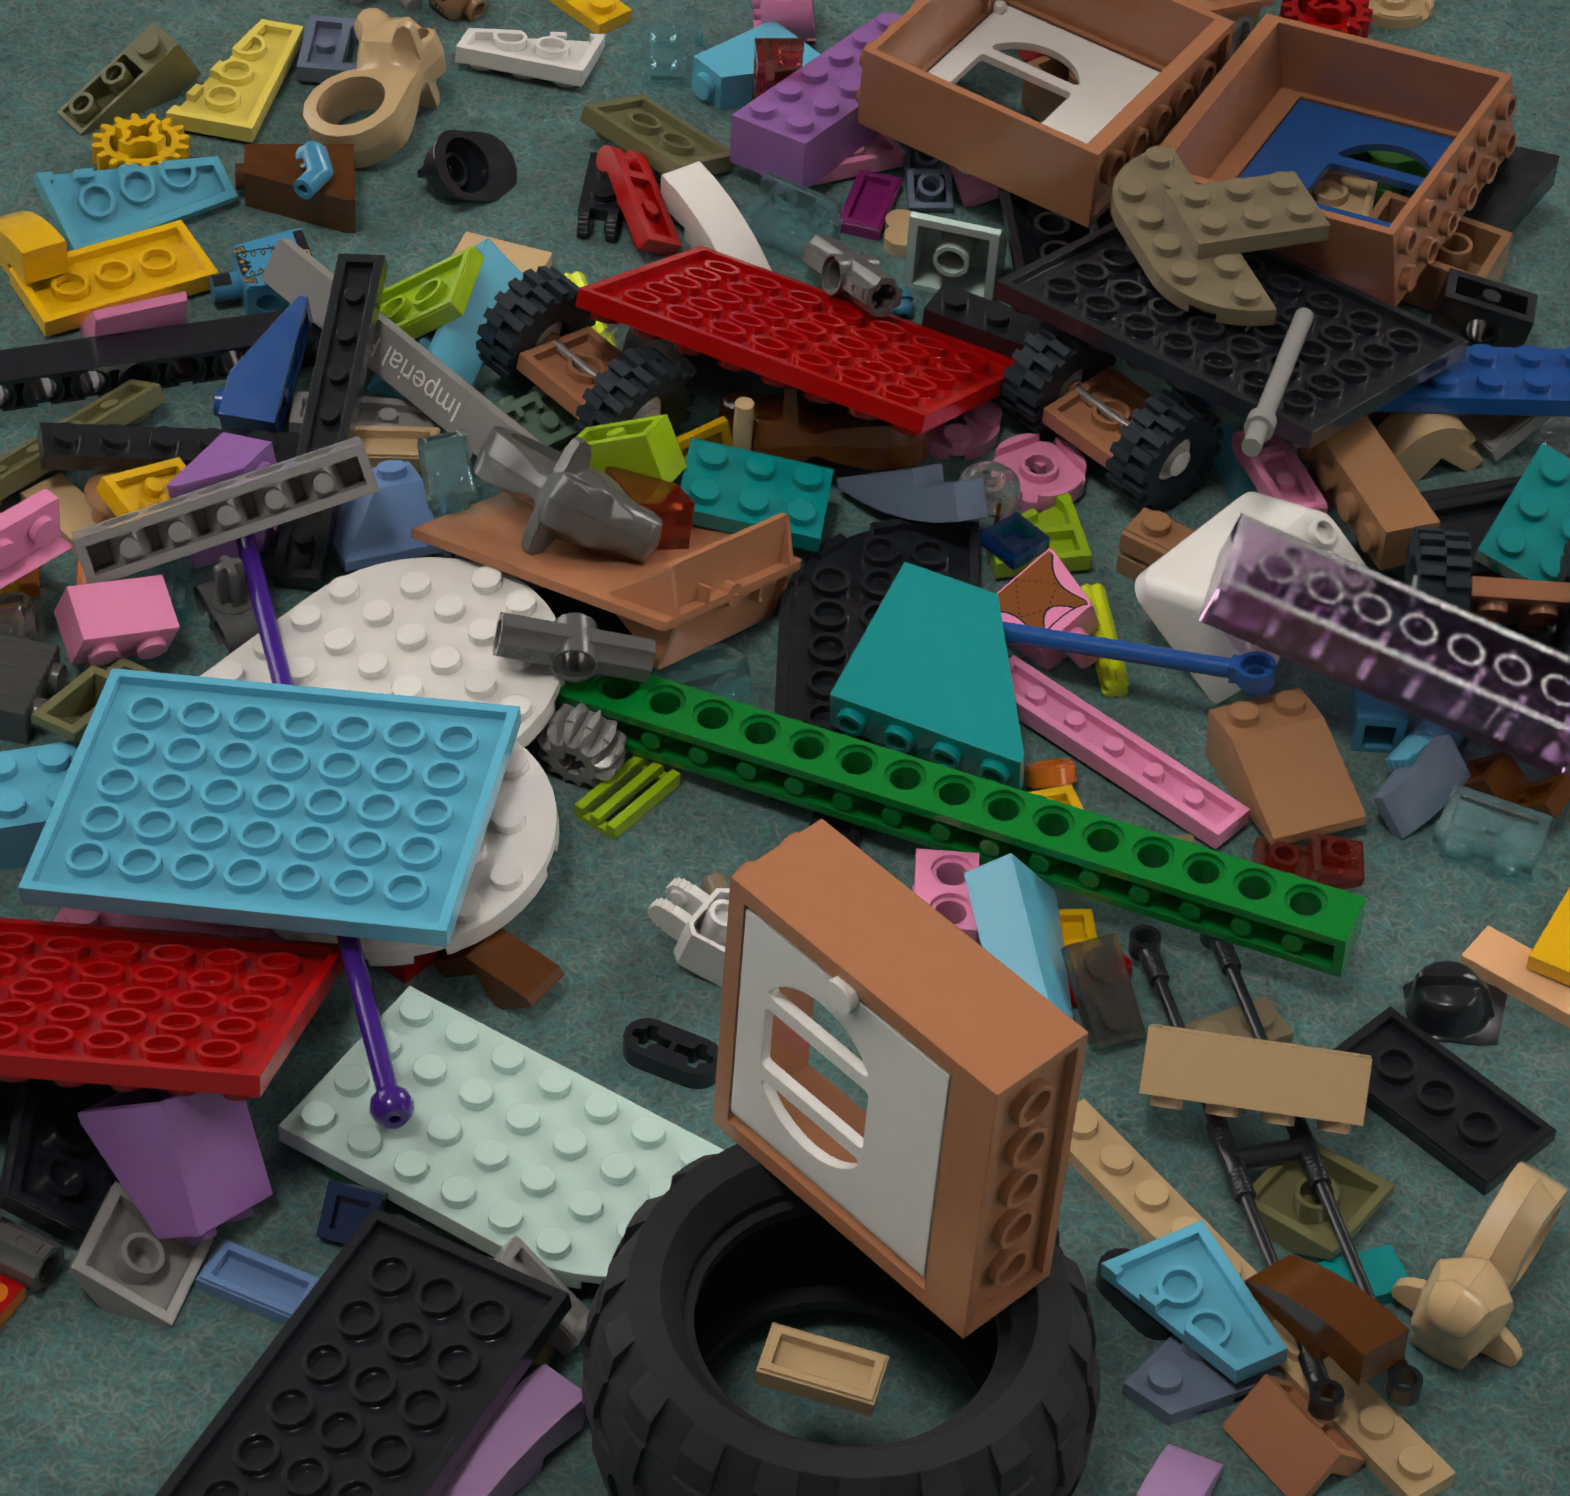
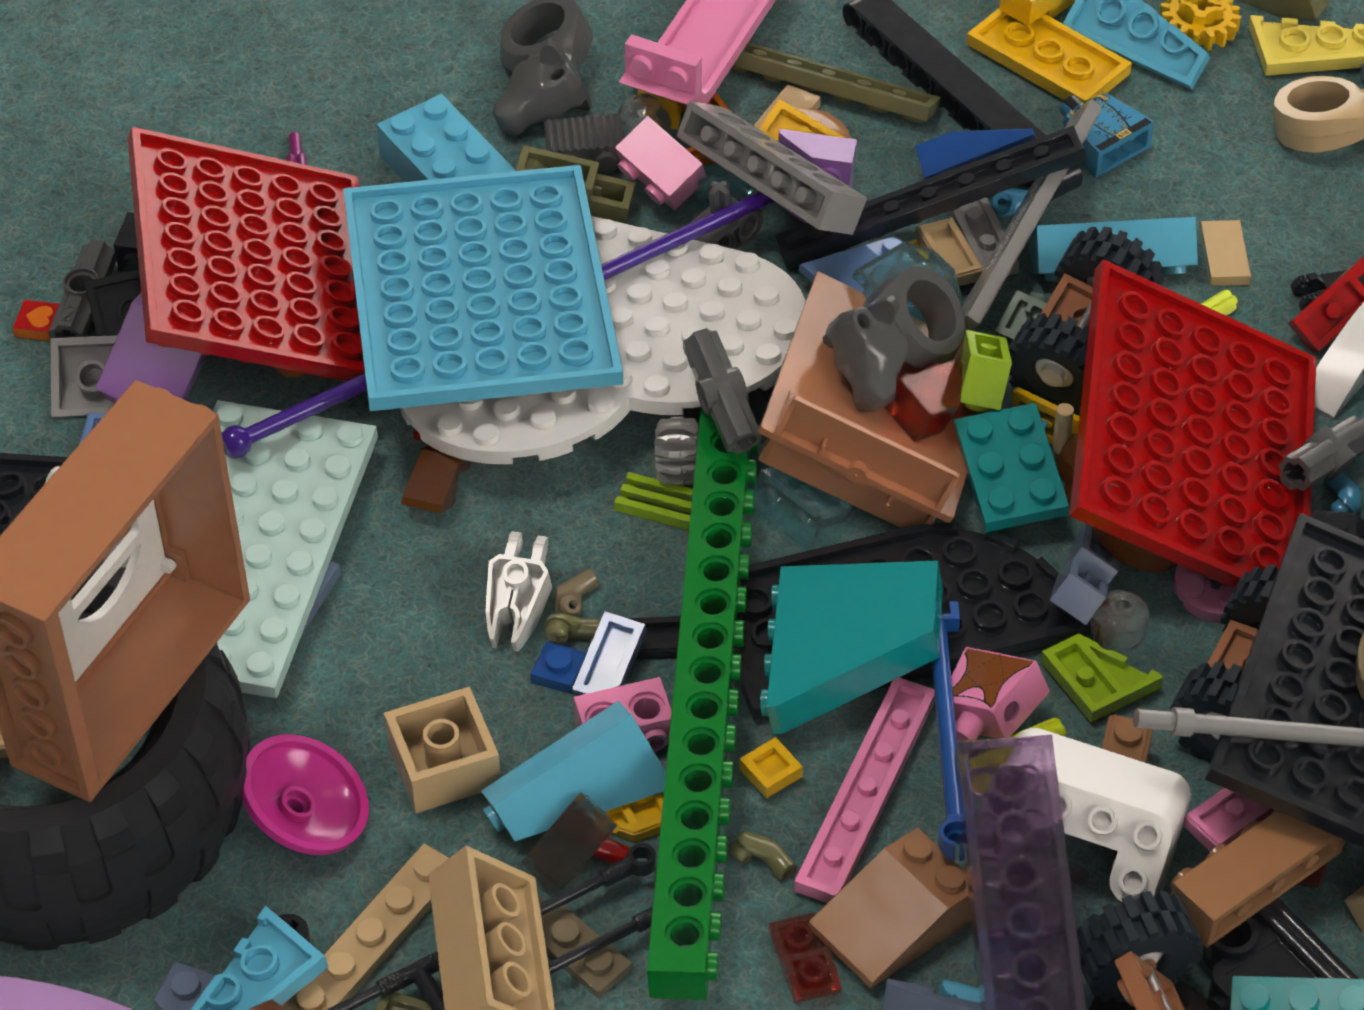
camera: 75 degrees right, 5 degrees up
(129, 447) = (854, 120): black plate -> none
(136, 316) = (1000, 78): bright pink slope -> none
(269, 181) = (1228, 114): reddish brown slope -> none
(317, 167) = (1219, 103): dark azure arm -> none
(433, 294) = (1102, 208): lime tile -> none
(469, 167) = (1308, 180): black piece -> none
(671, 1053) = (411, 603): black beam -> none
(1014, 540) = (1070, 652): tile -> none
(1050, 773) = (814, 752): orange tile -> none
(1061, 461) = (1167, 636): bright pink plate -> none

